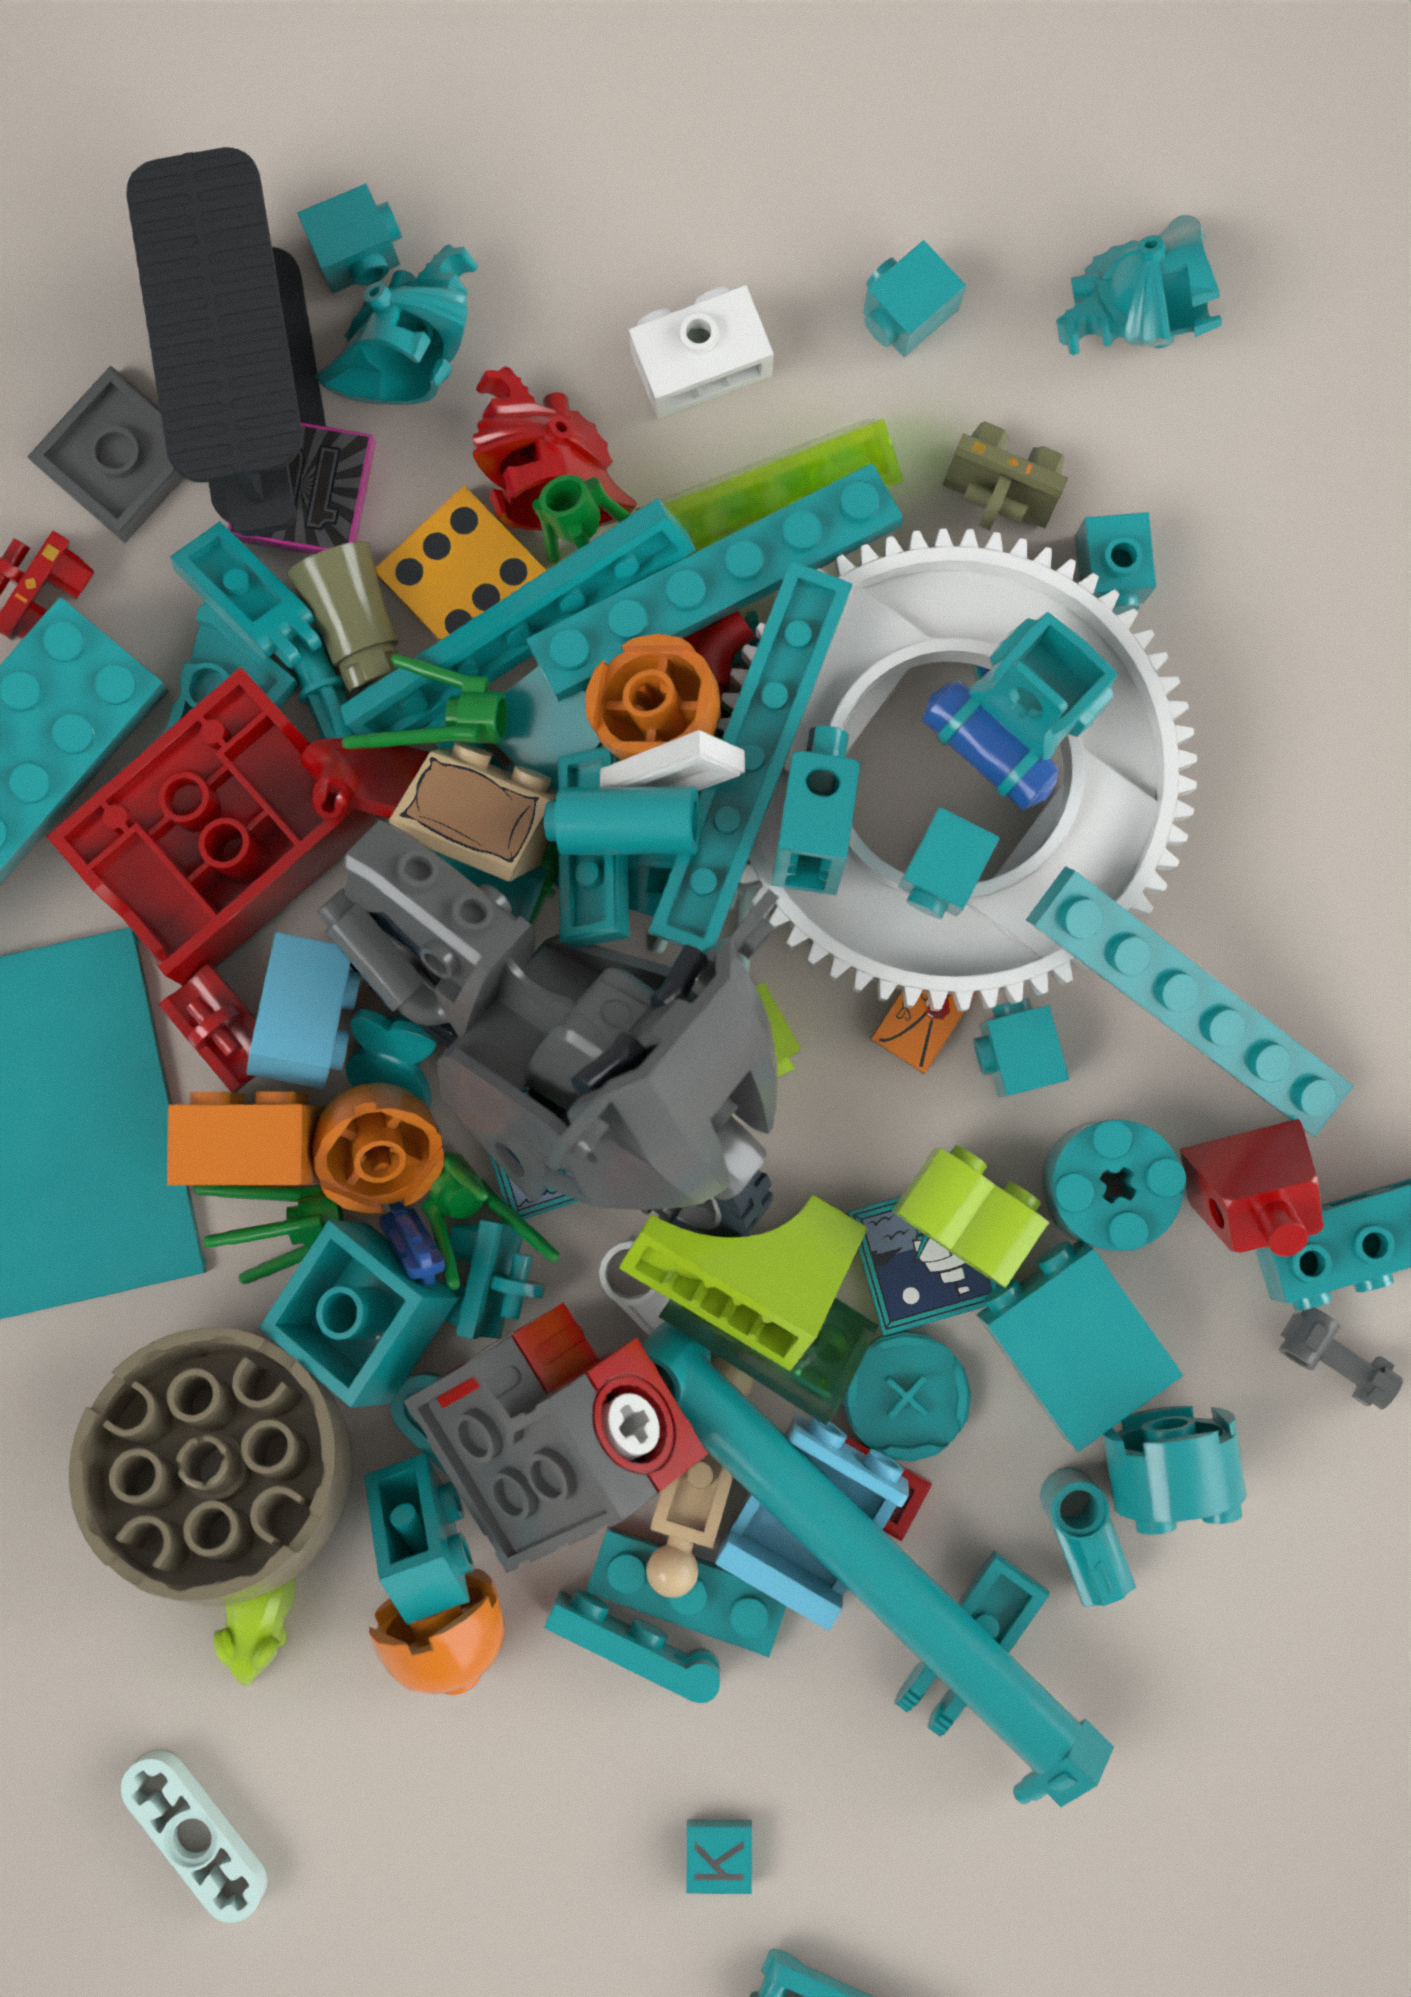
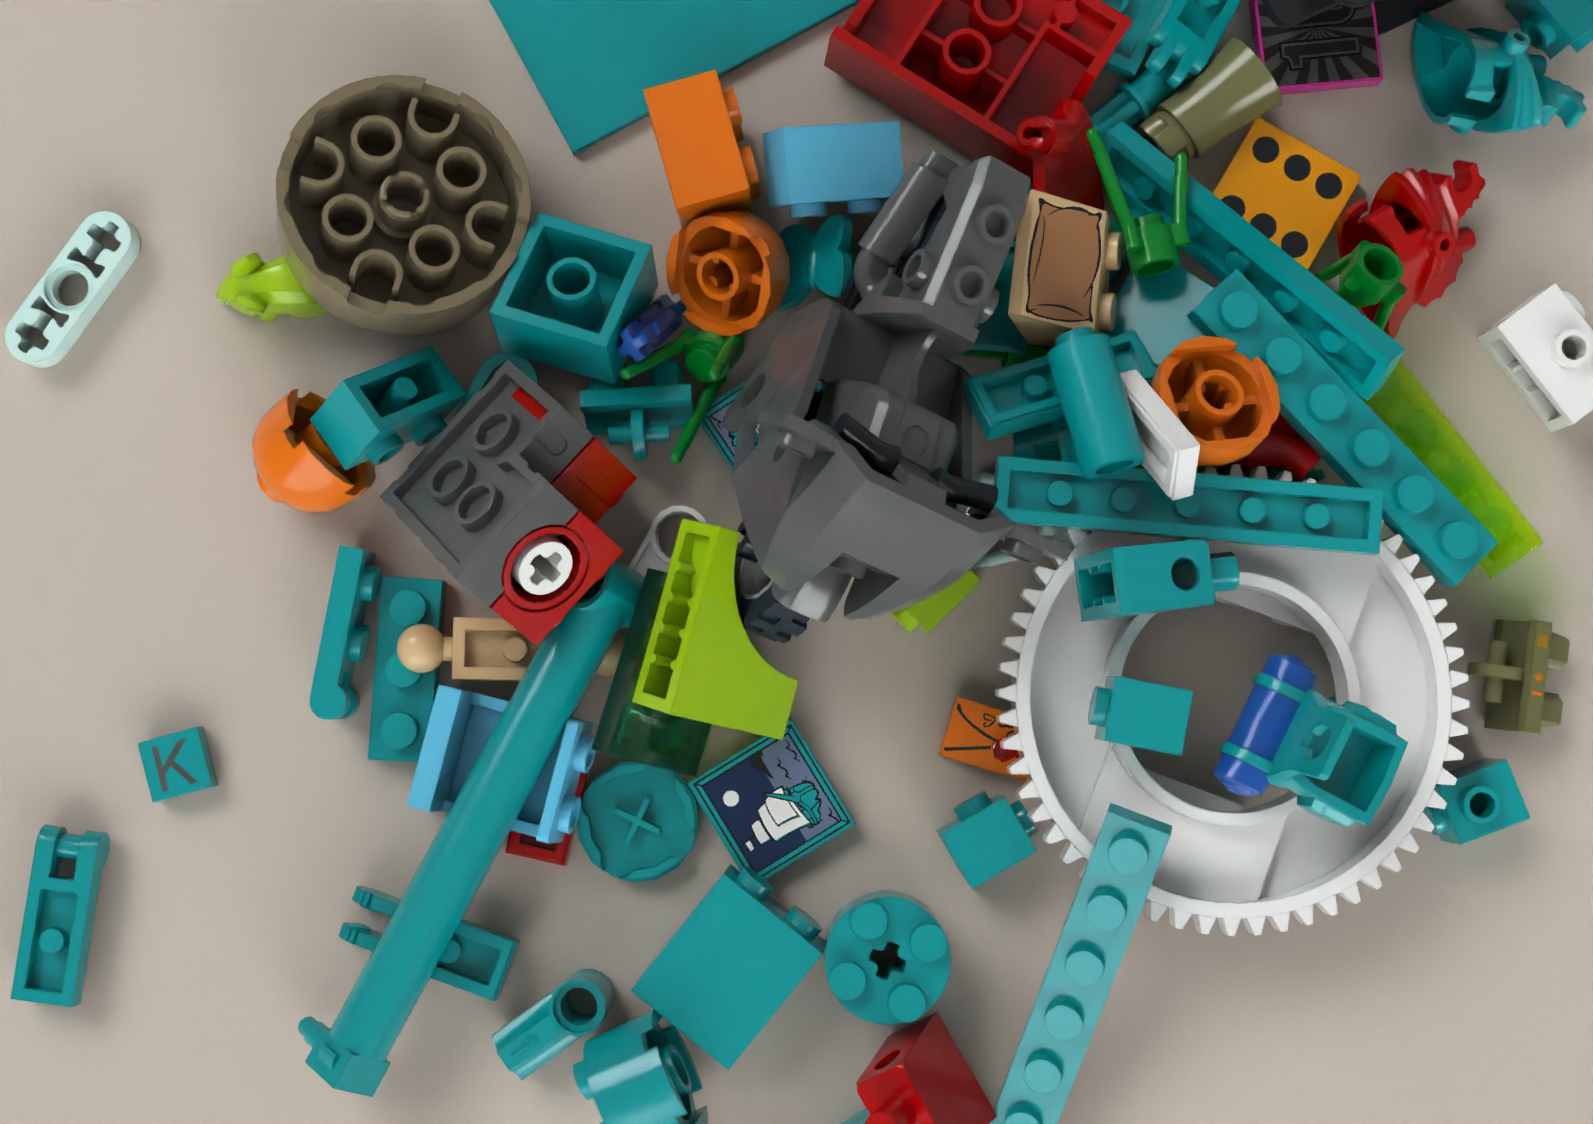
camera: 70 degrees right, 0 degrees up
(214, 1024) = (799, 93): red hips -> none
(301, 1224) = (640, 224): green plant -> none
(971, 1215) = (821, 833): lime brick -> none

